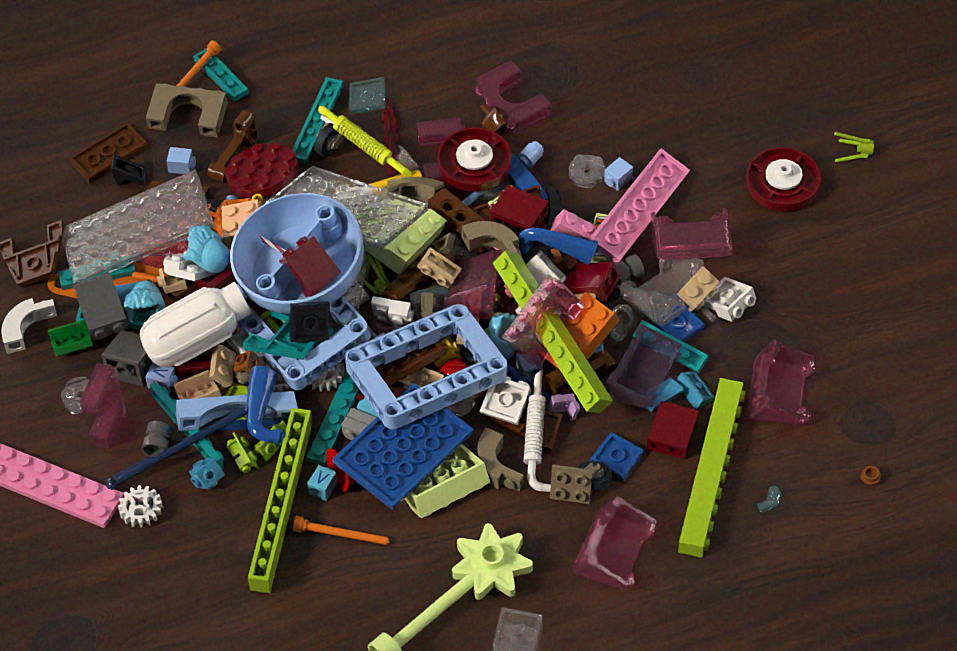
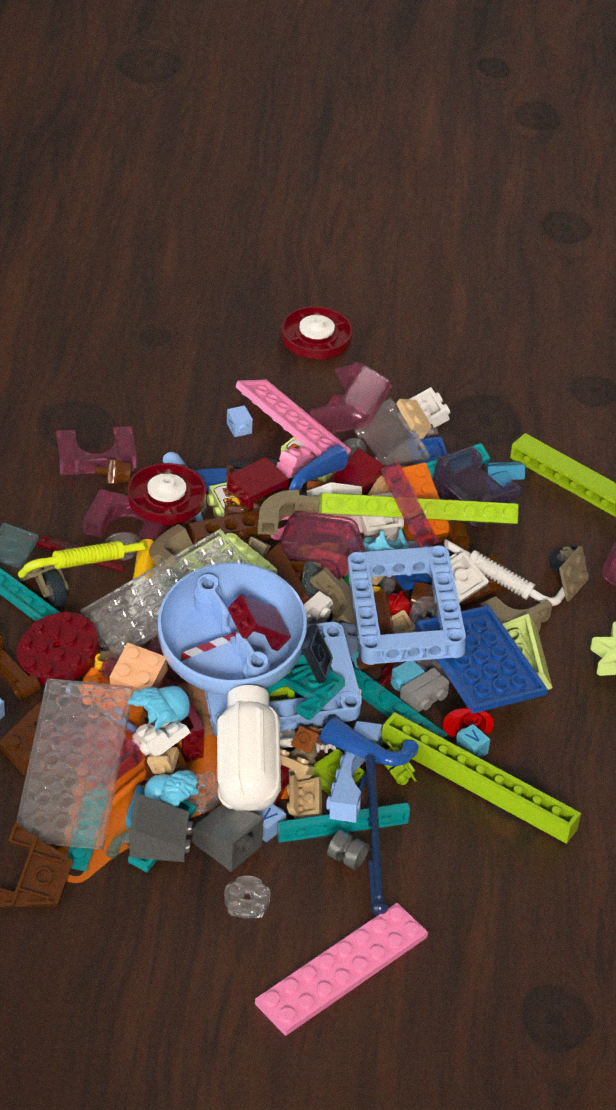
camera: 70 degrees left, 10 degrees down
(20, 318) = (117, 924): white arch -> none
(70, 338) = (168, 880): green bracket -> none
(105, 401) = (299, 842): clear pink arch -> none
(140, 506) = (423, 892): white gear -> none
(206, 473) = (414, 824): dark azure brick -> none
(247, 458) = (392, 790): lime hinge -> none
(301, 524) = (533, 753): orange piece -> none
(439, 268) = (297, 553): tan bracket -> none
(564, 403) = (482, 545): lavender bracket -> none
(582, 162) = (224, 439): clear plate -> none
(618, 455) = (546, 540): blue tile -> none
(672, 430) = (547, 494): dark red panel -> none
(779, 385) = (520, 417): clear pink windscreen -> none
(864, 146) = (313, 278): lime plant -> none

